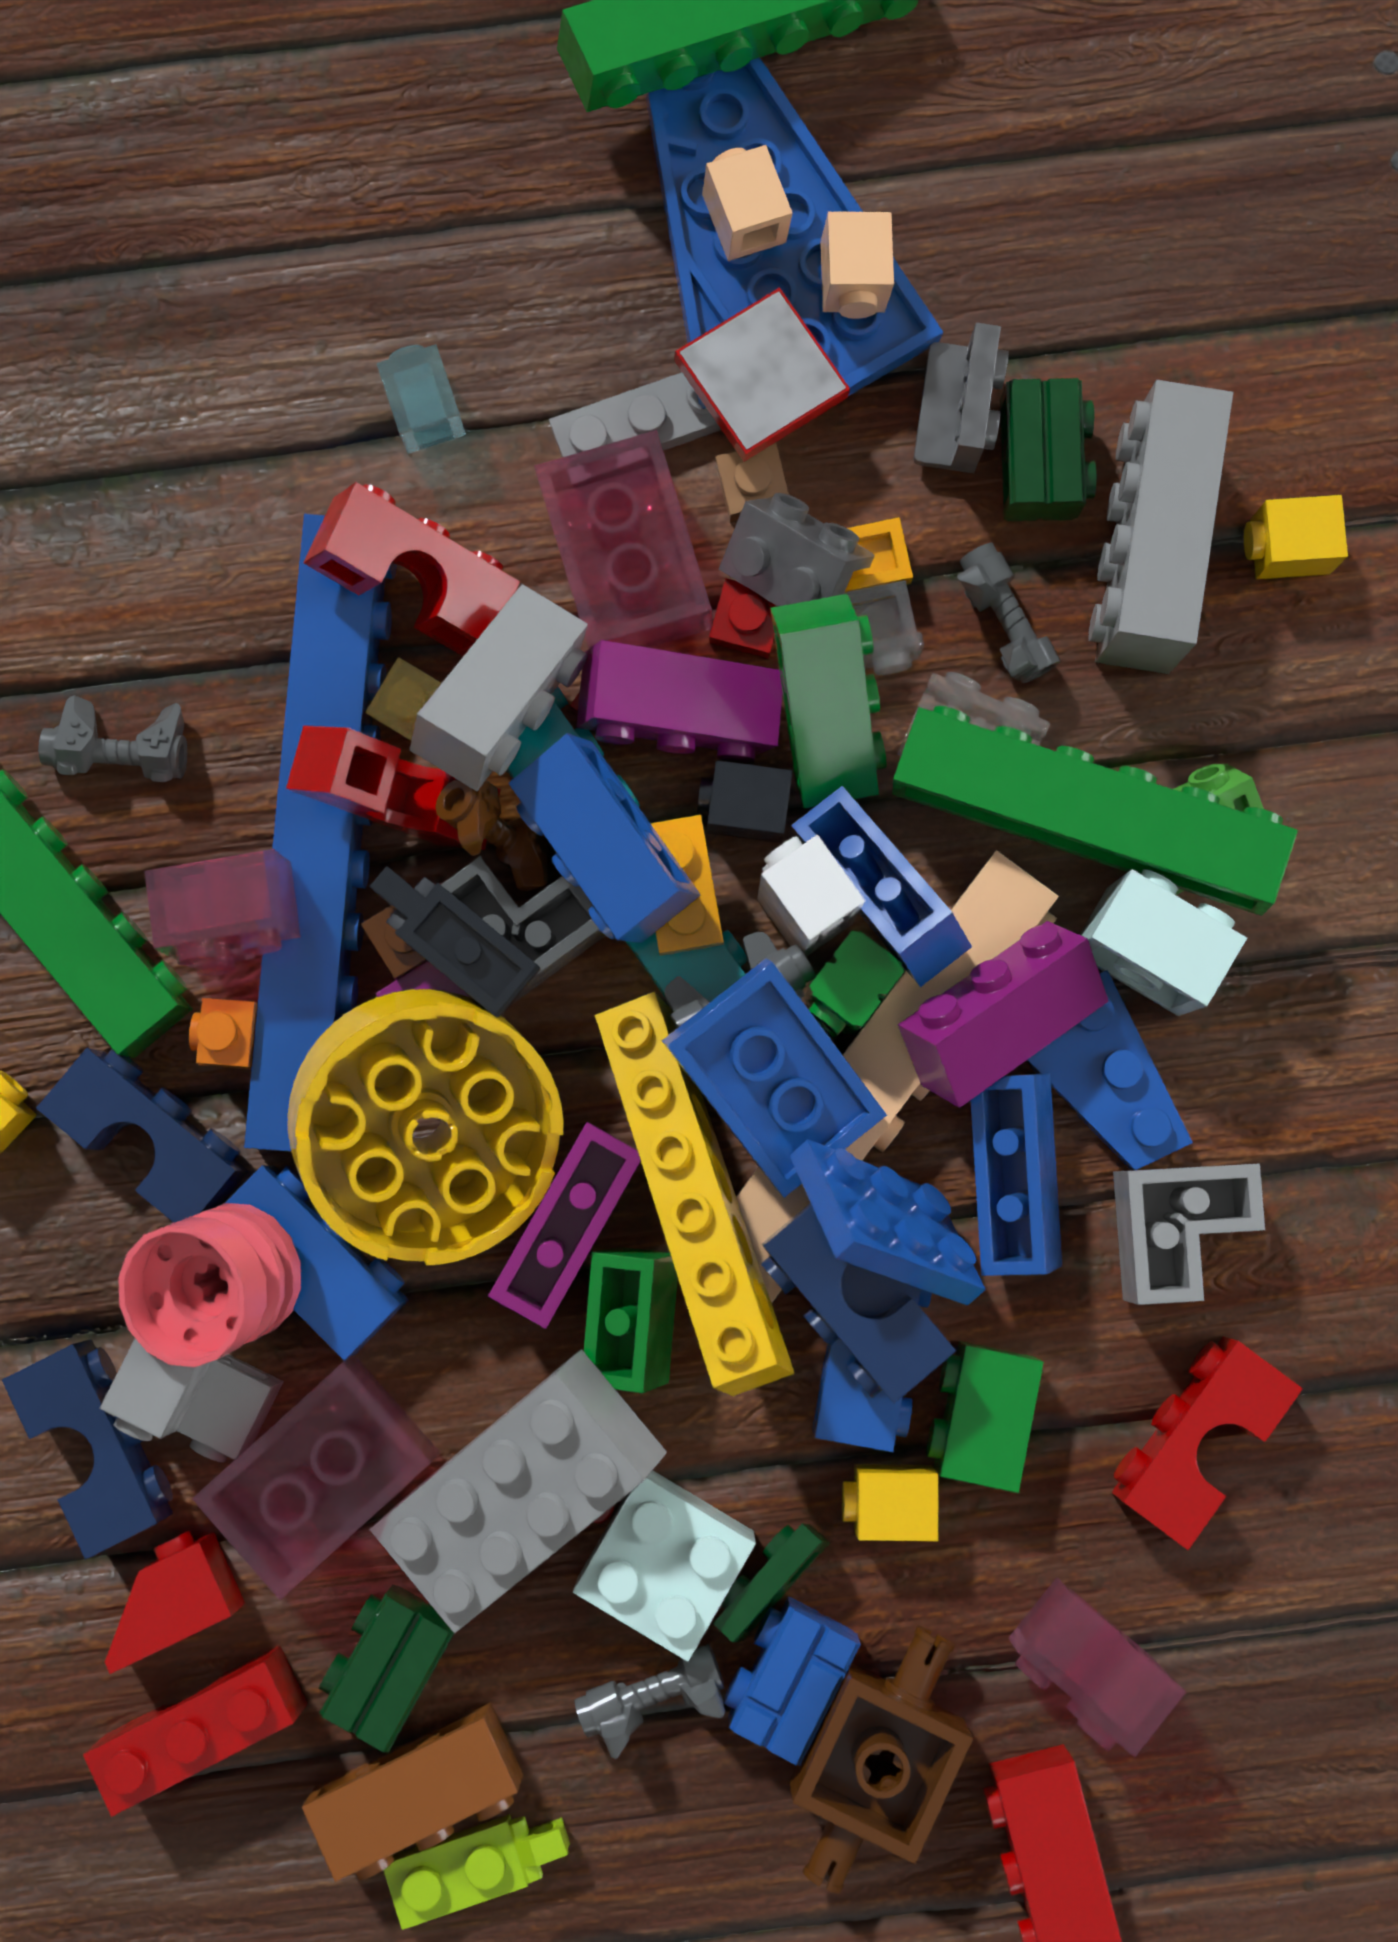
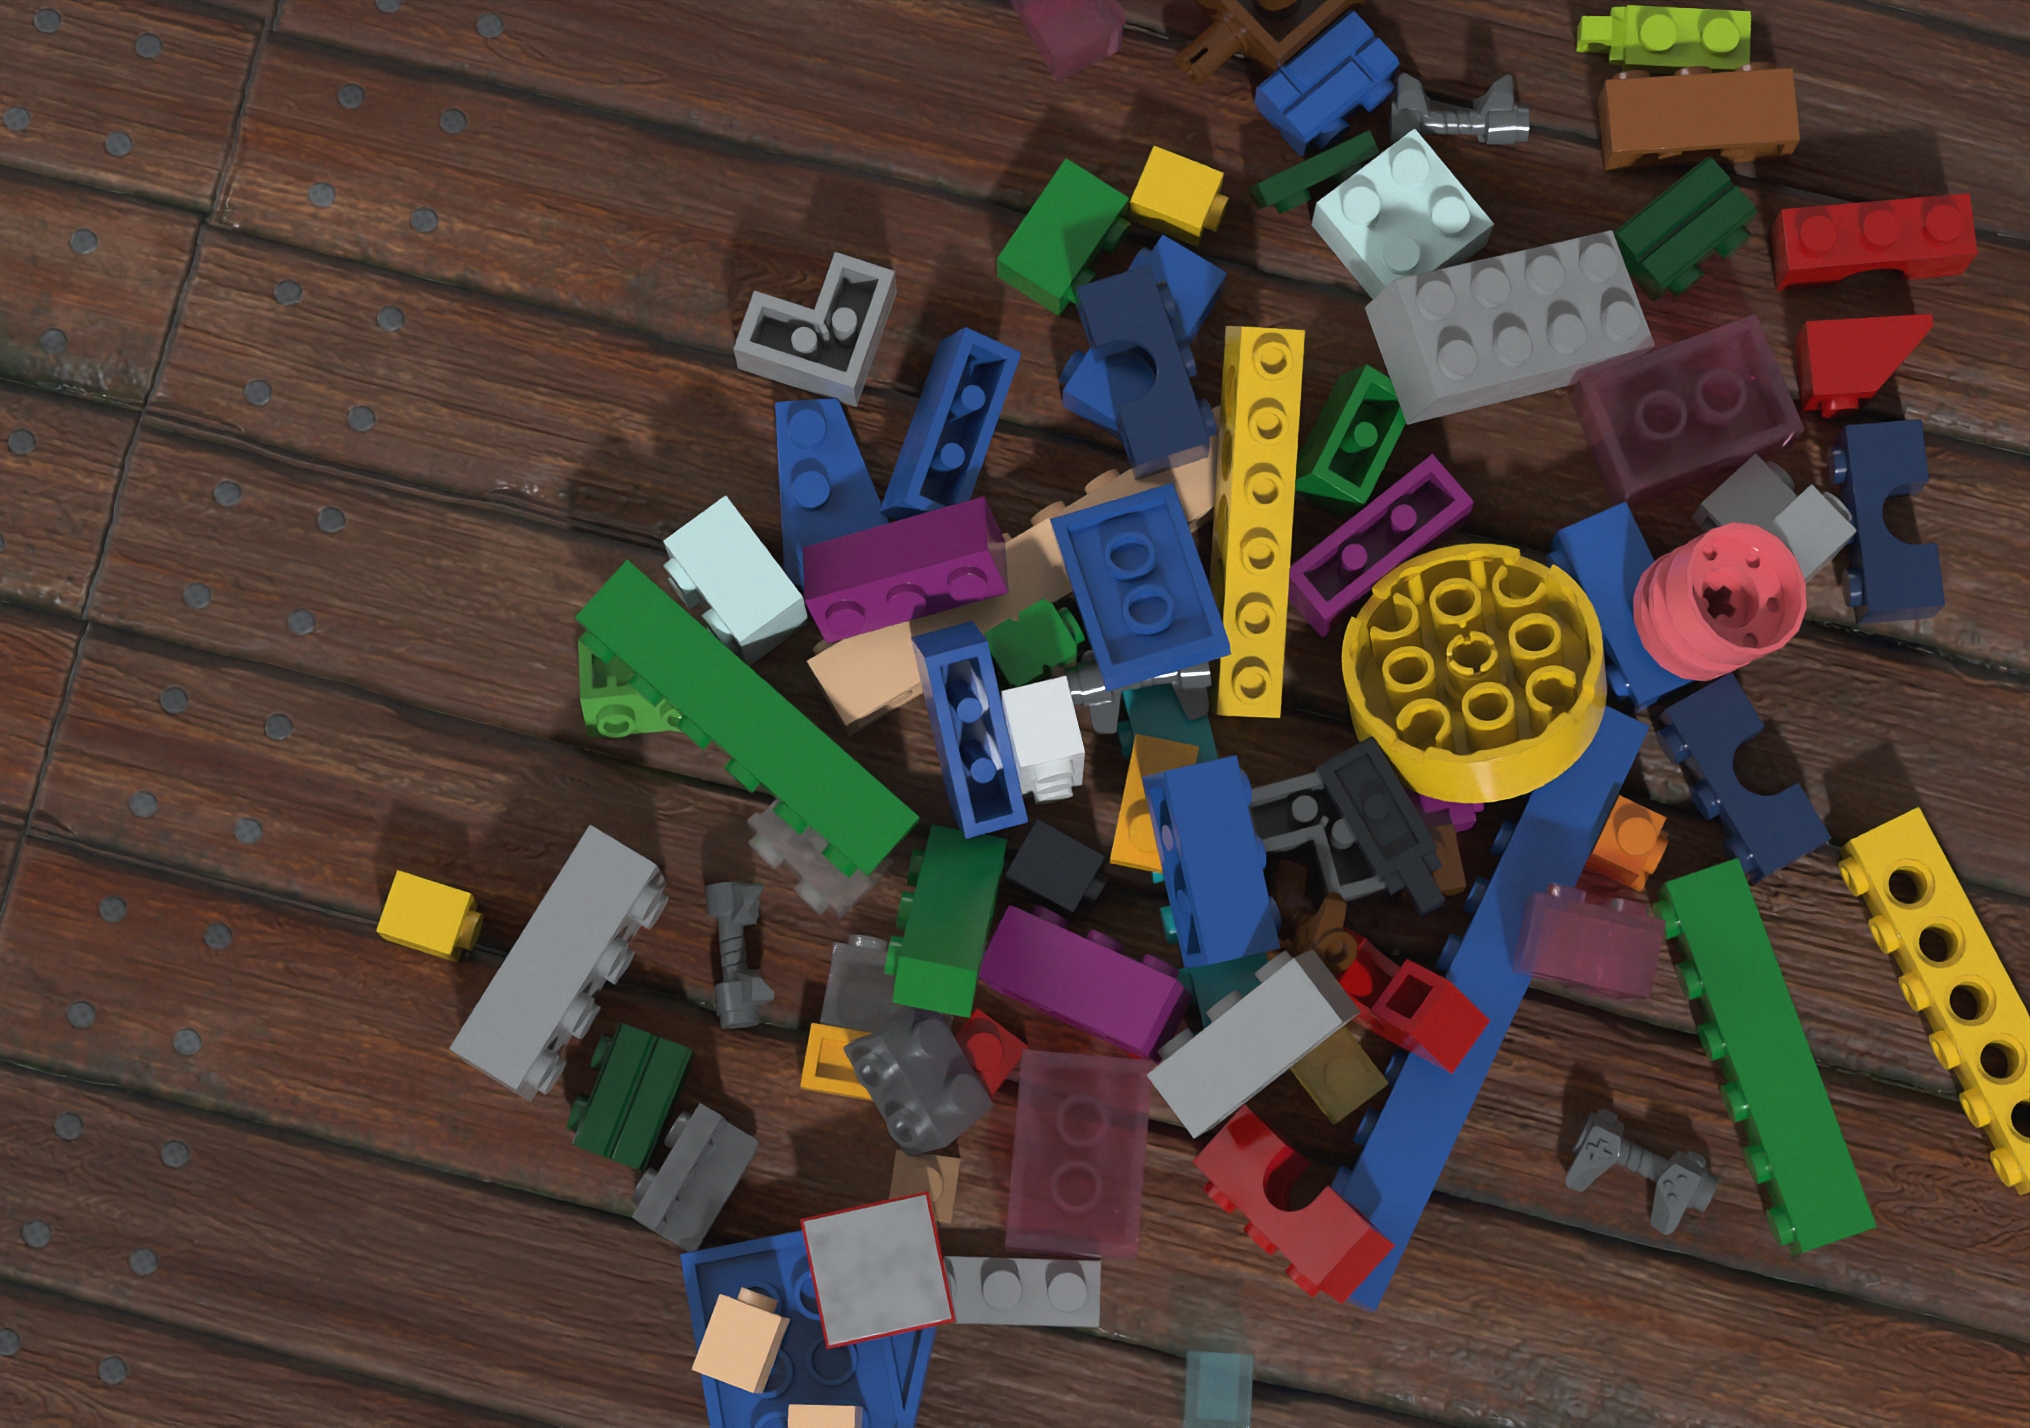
camera: 160 degrees left, 5 degrees down
(887, 1223) = (1090, 422): blue plate -> none
(1164, 1477) = (838, 176): red arch -> none

